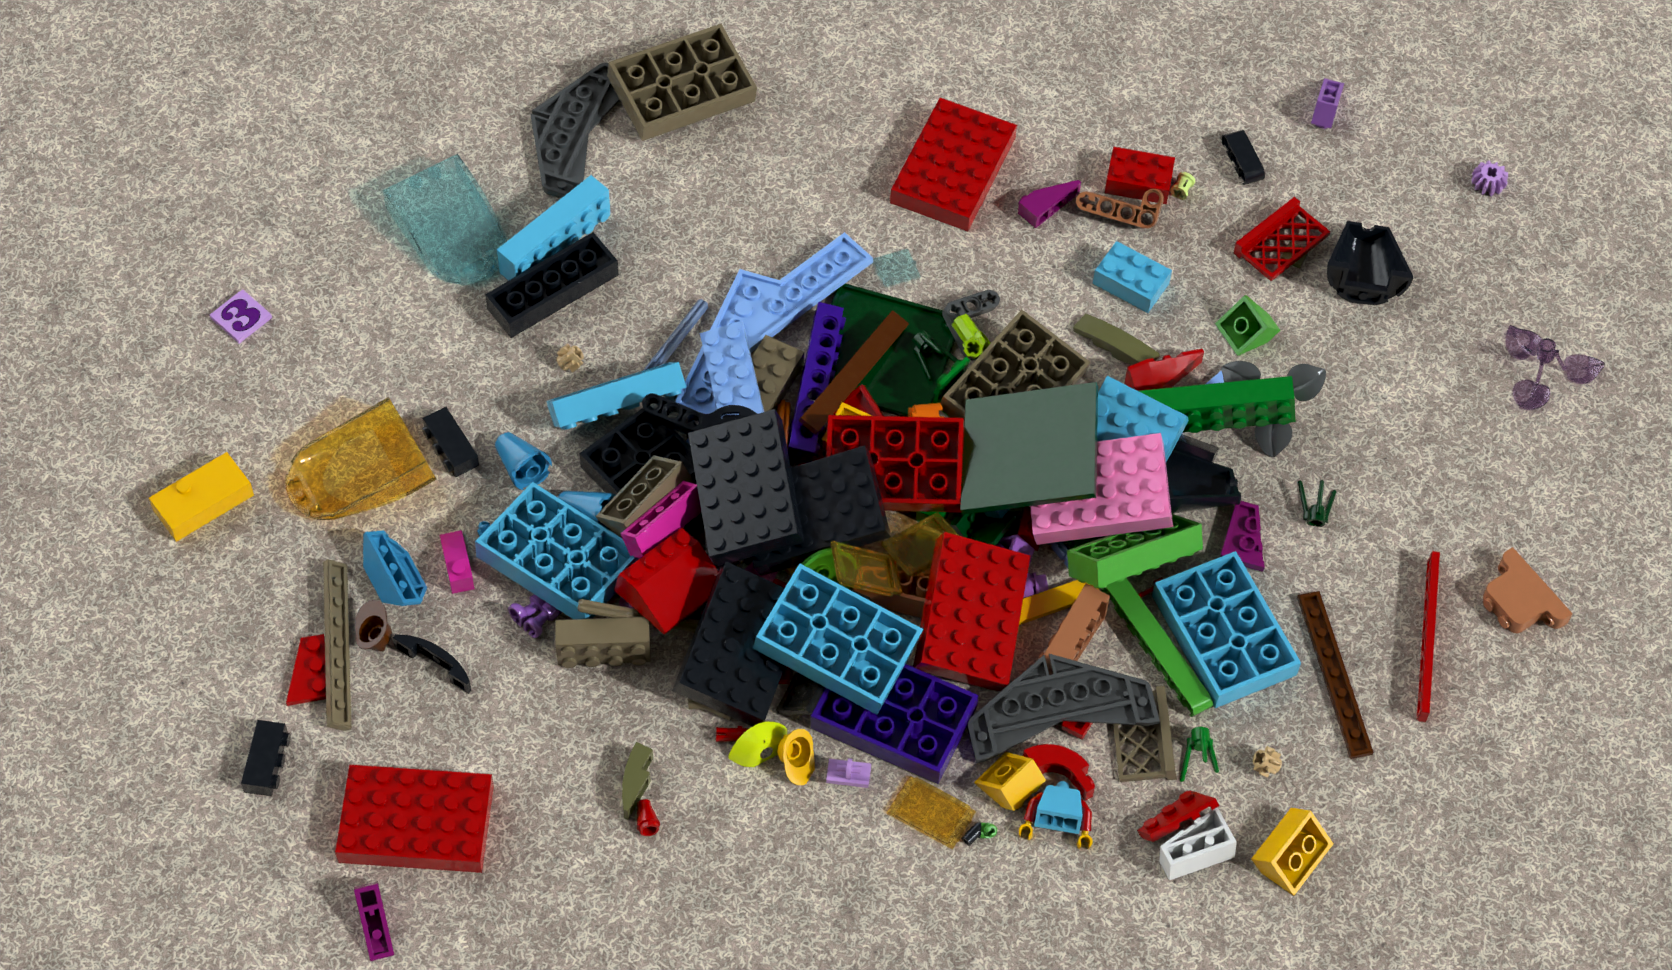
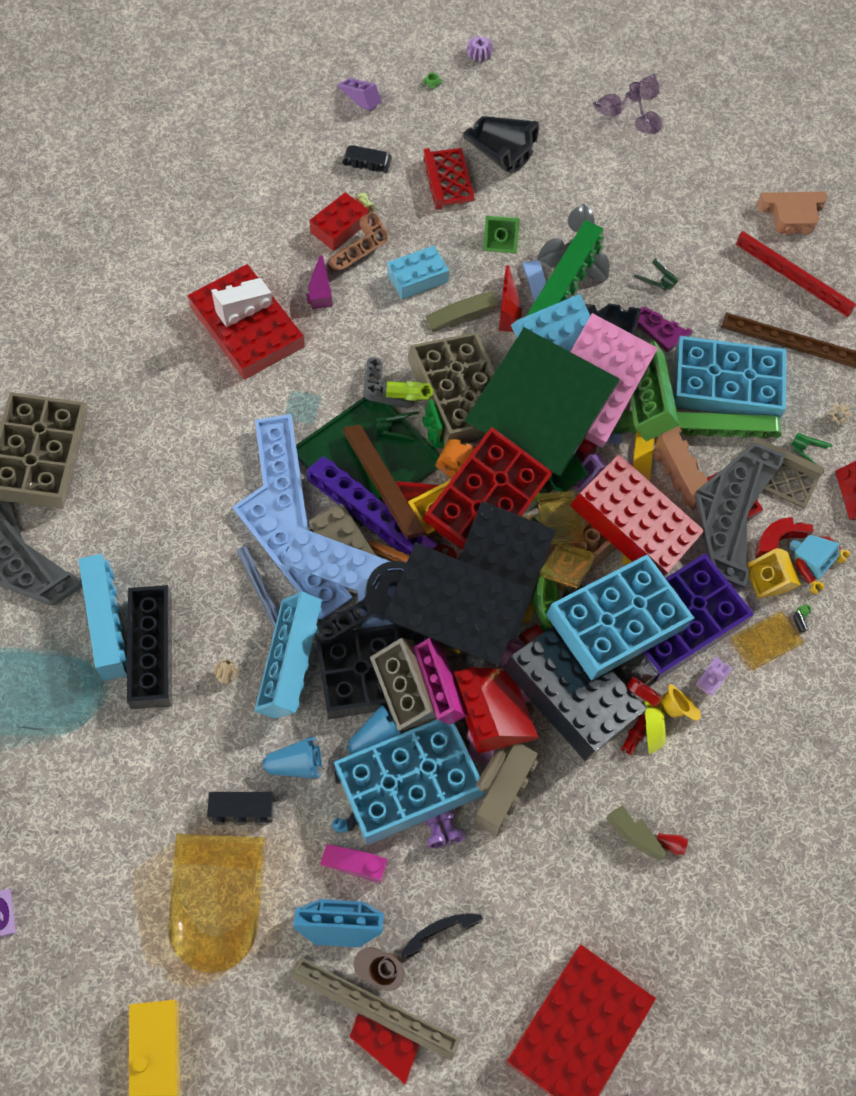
camera: 60 degrees left, 5 degrees up
(782, 712) = (644, 692): none -> red beam
(959, 141) = (241, 301): none -> white wedge
(1405, 154) = (432, 80): none -> bright green plate

